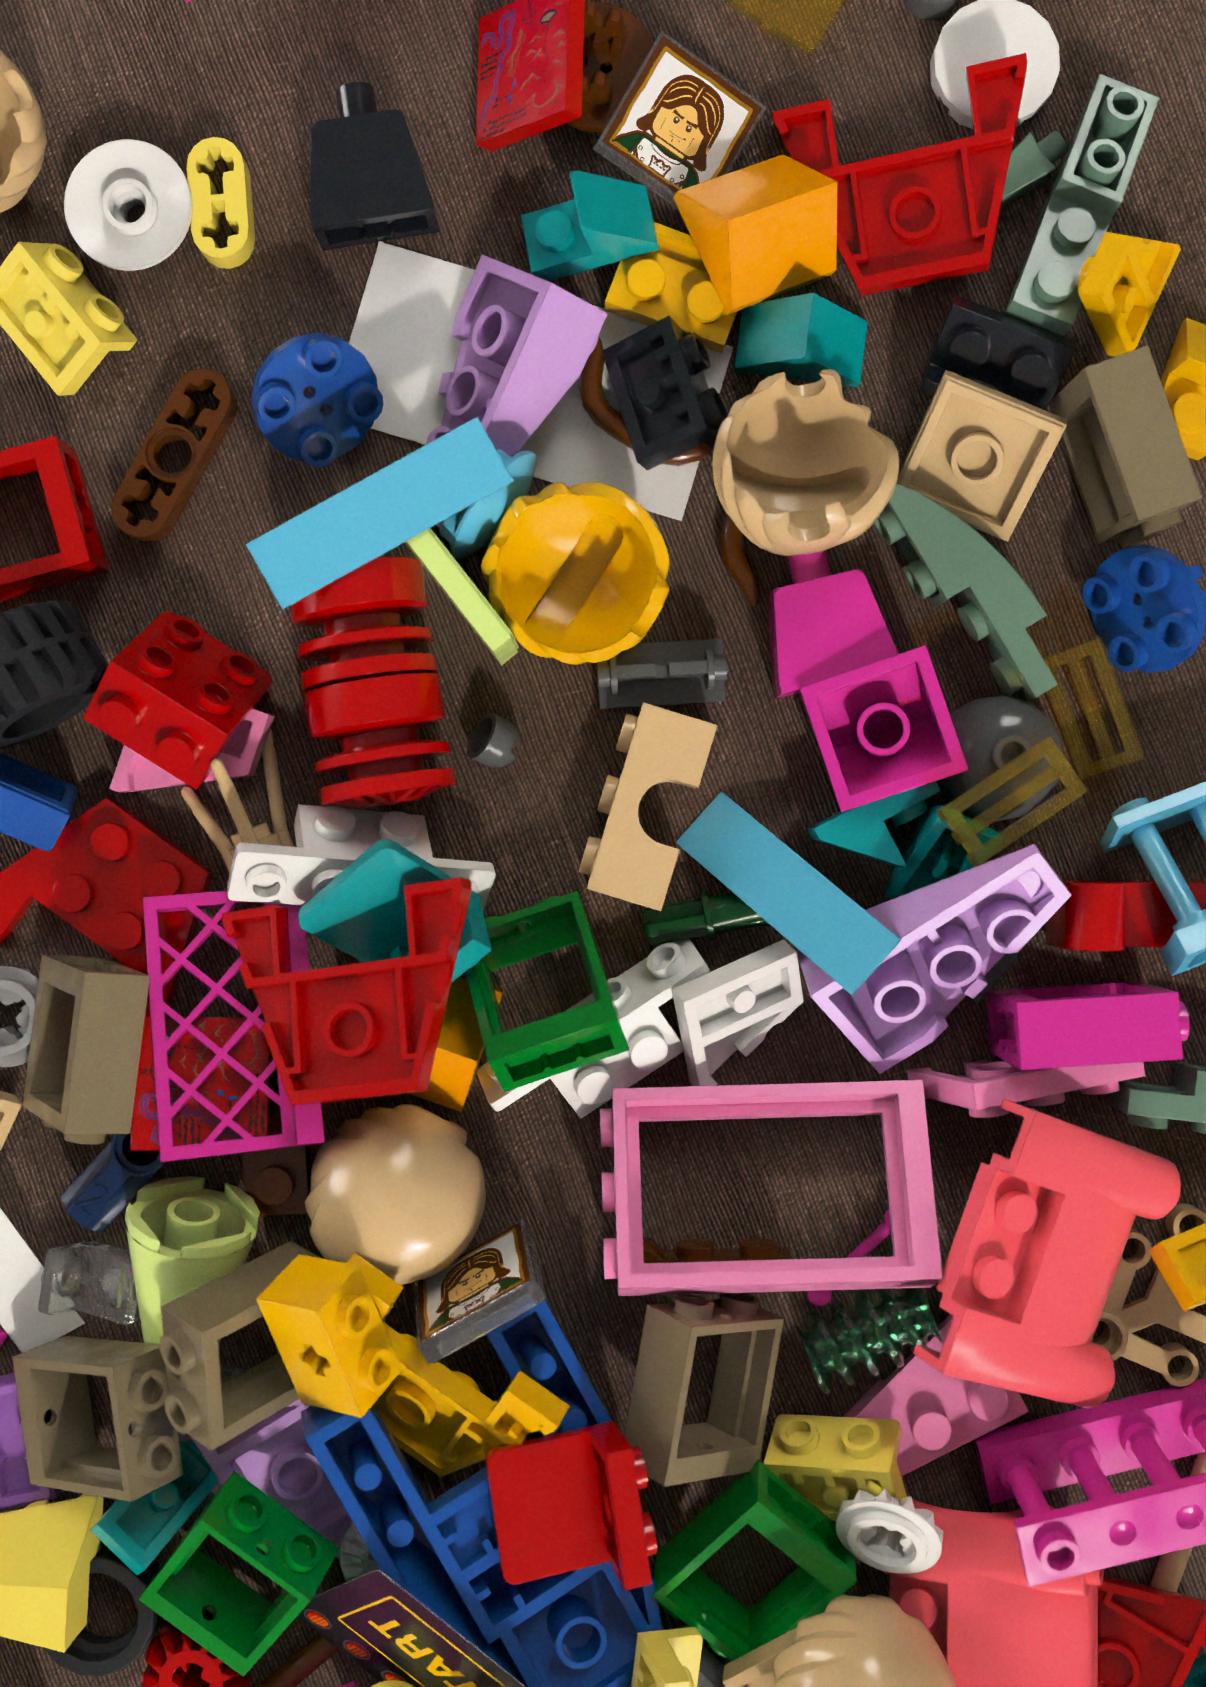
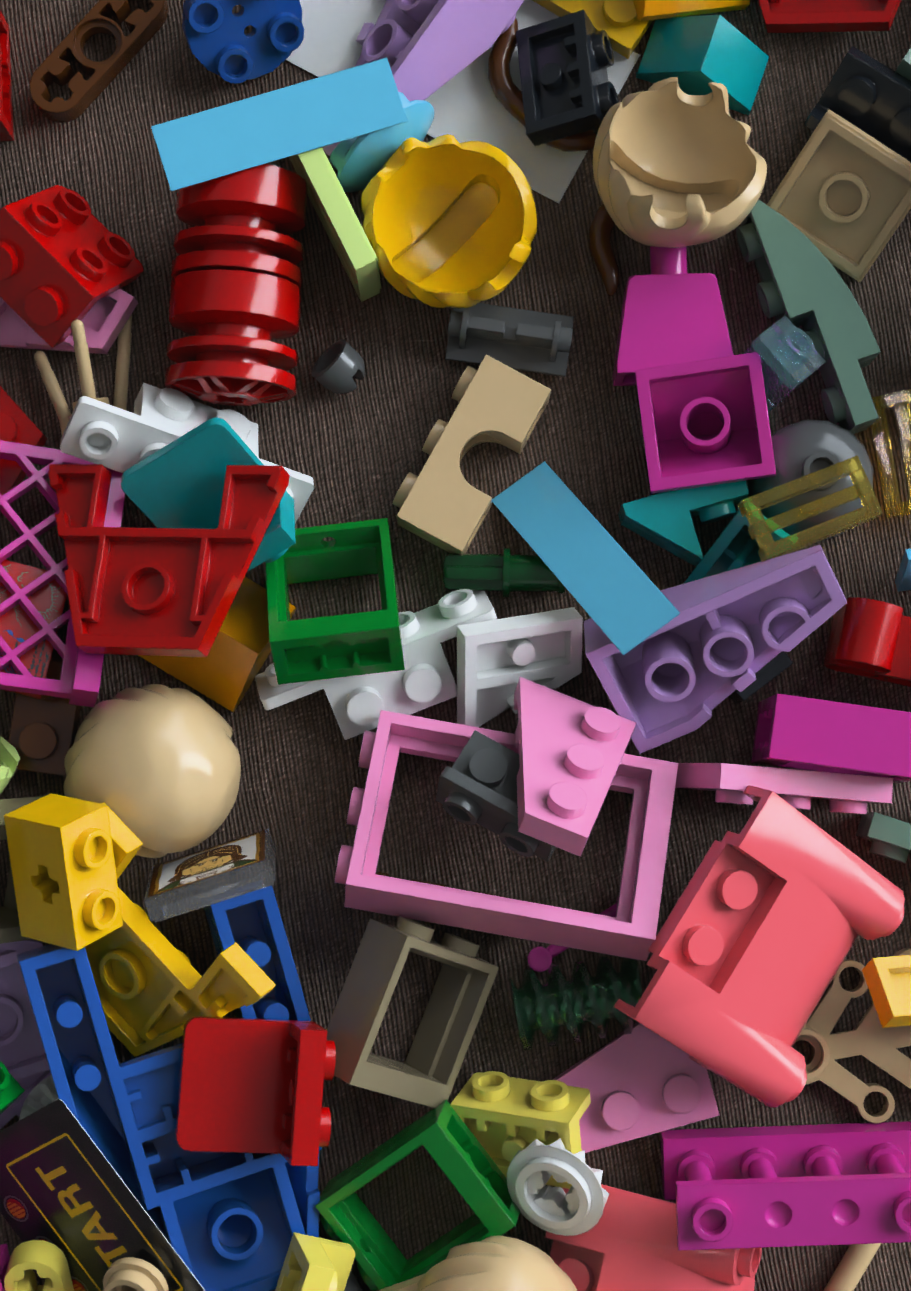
camera: 10 degrees right, 5 degrees down
(763, 1157) = (484, 792): none -> dark grey bracket
(815, 1117) = (565, 763): none -> bright pink wing
(952, 640) = (786, 359): none -> clear light blue bracket

